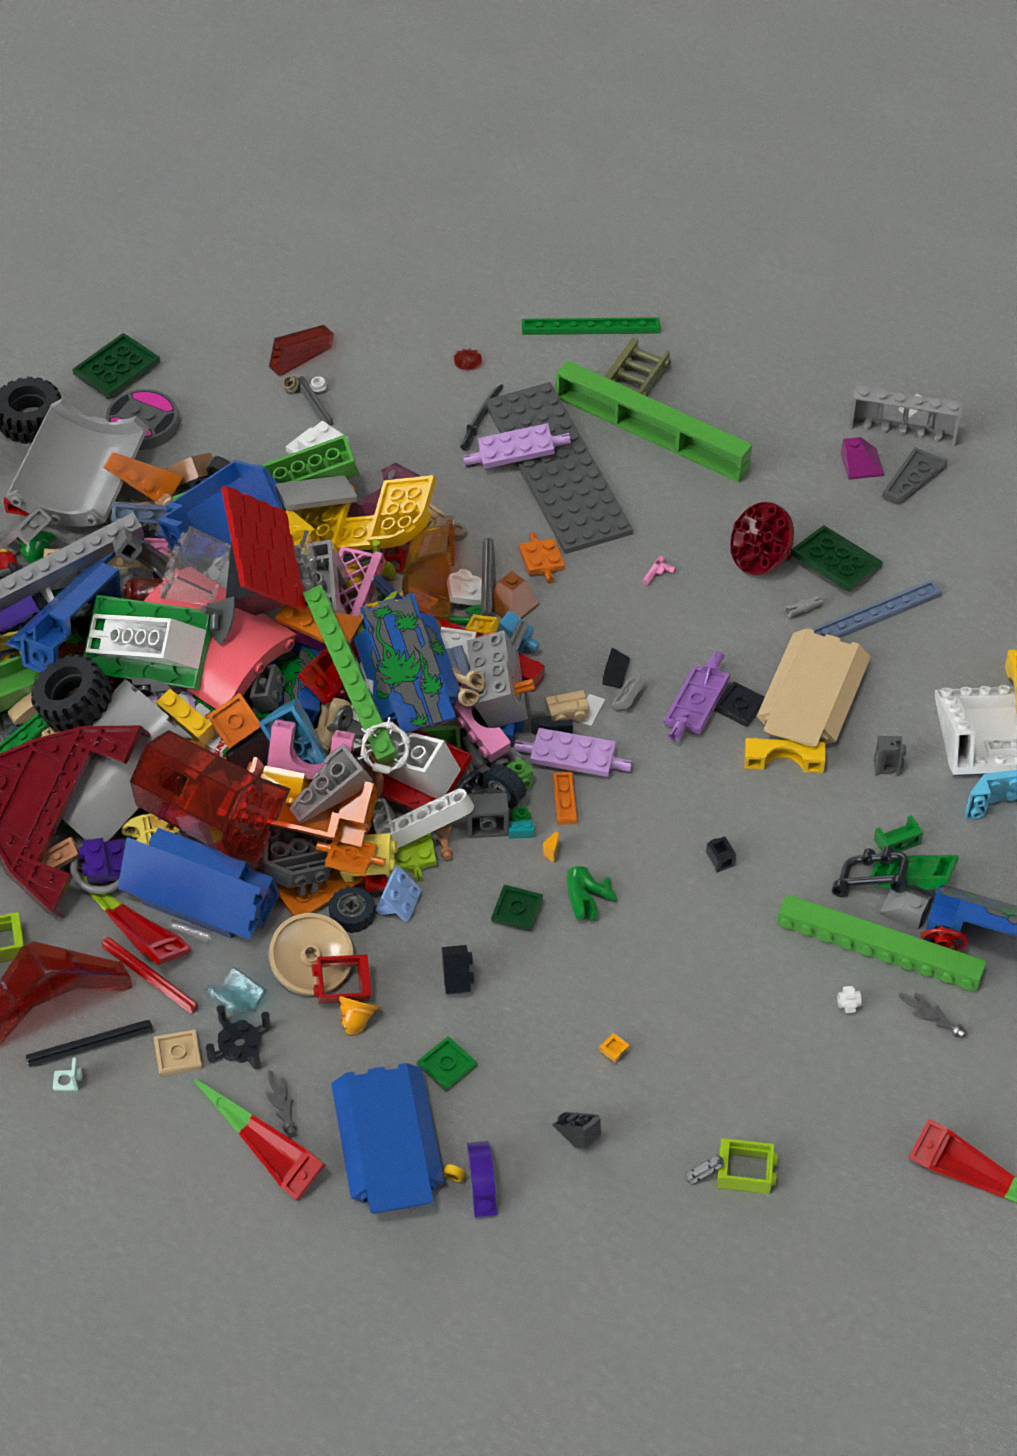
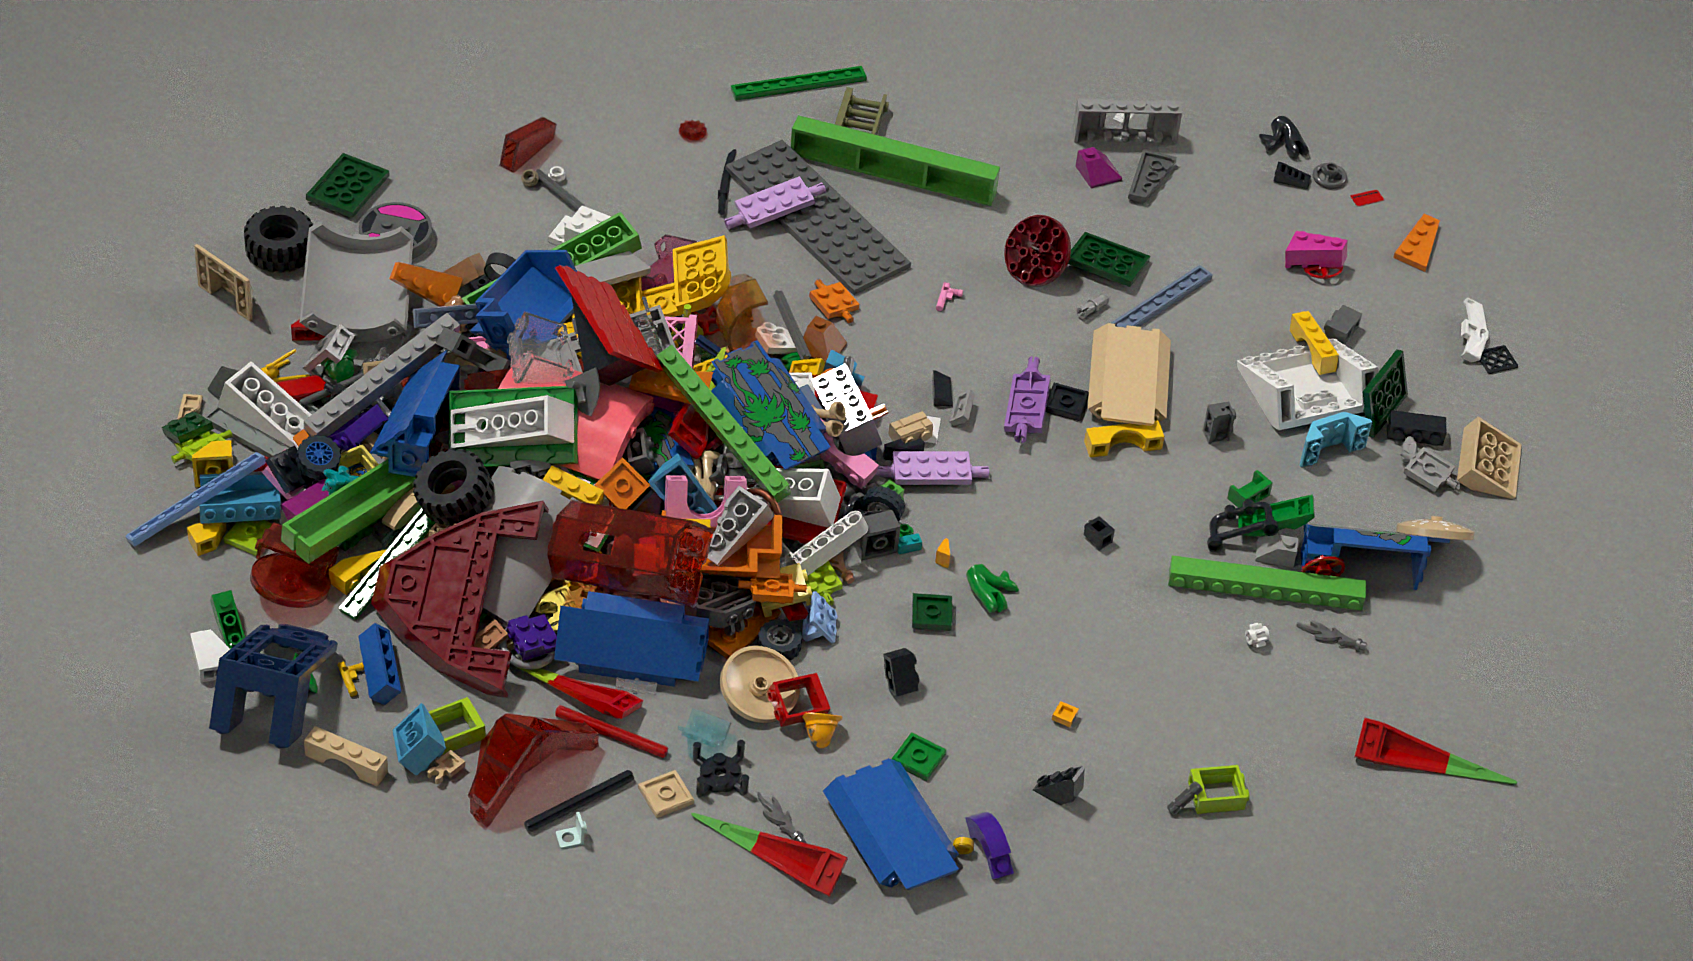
camera: 20 degrees left, 5 degrees down
(379, 767) = (761, 492): white piece -> none
(564, 798) = (937, 510): orange tile -> none

